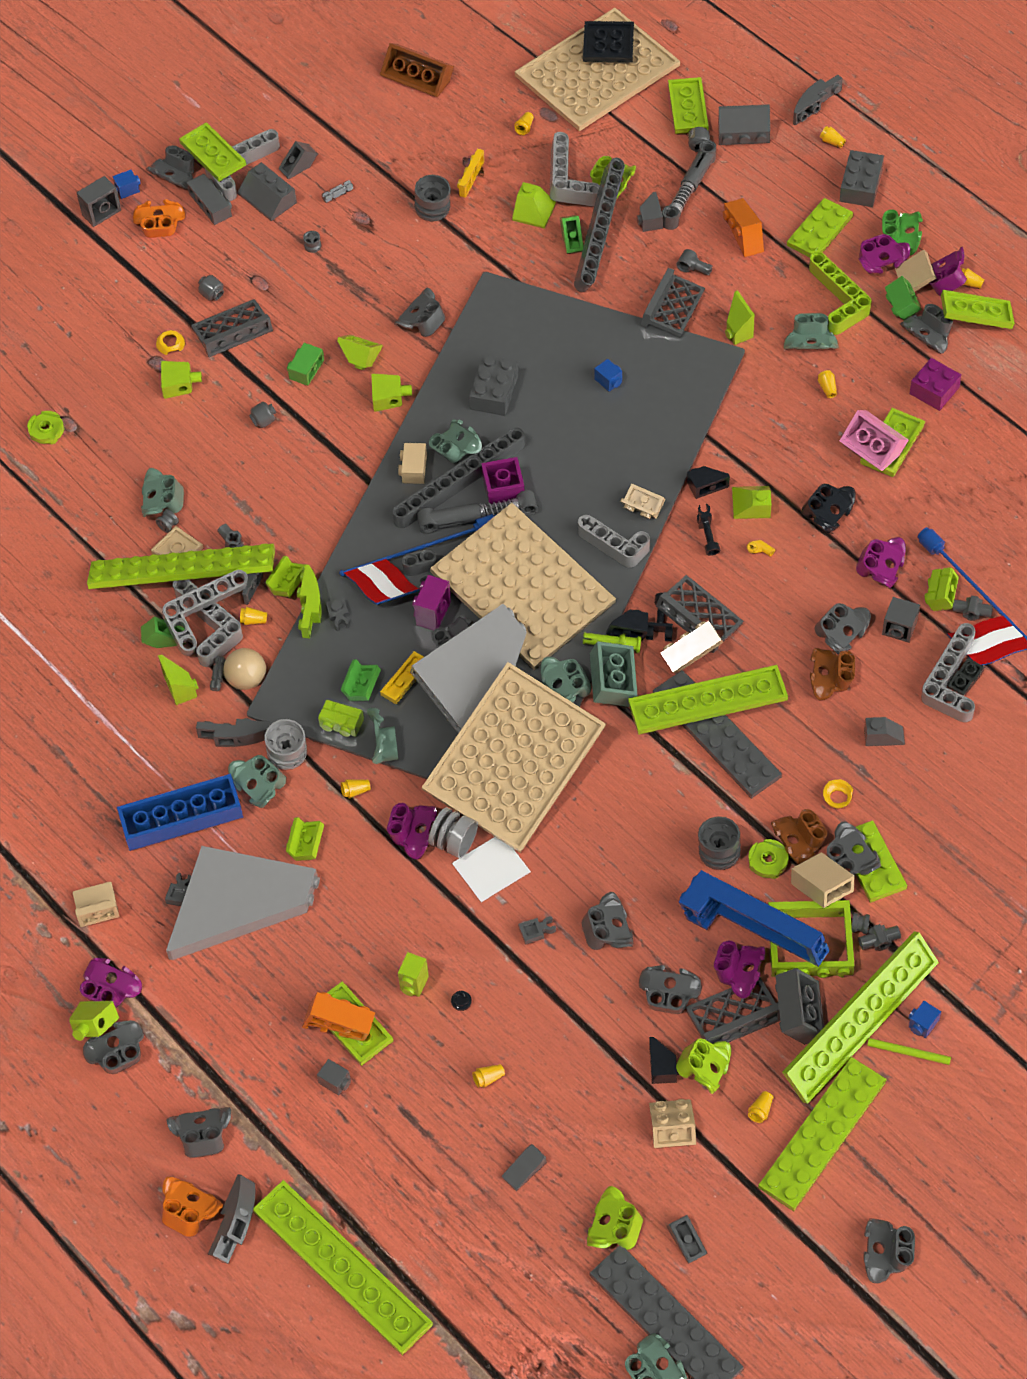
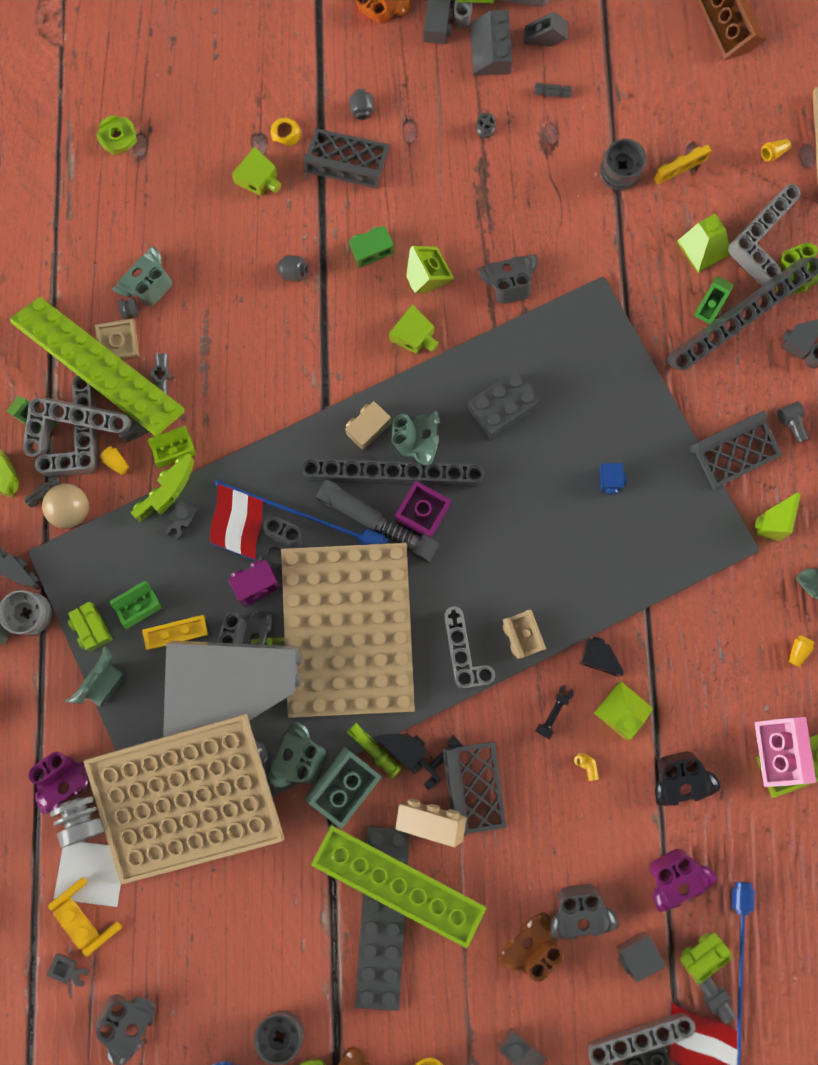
camera: 40 degrees right, 20 degrees up
(354, 787) = (48, 699): yellow cone -> none
(513, 898) = (76, 923): none -> yellow plate

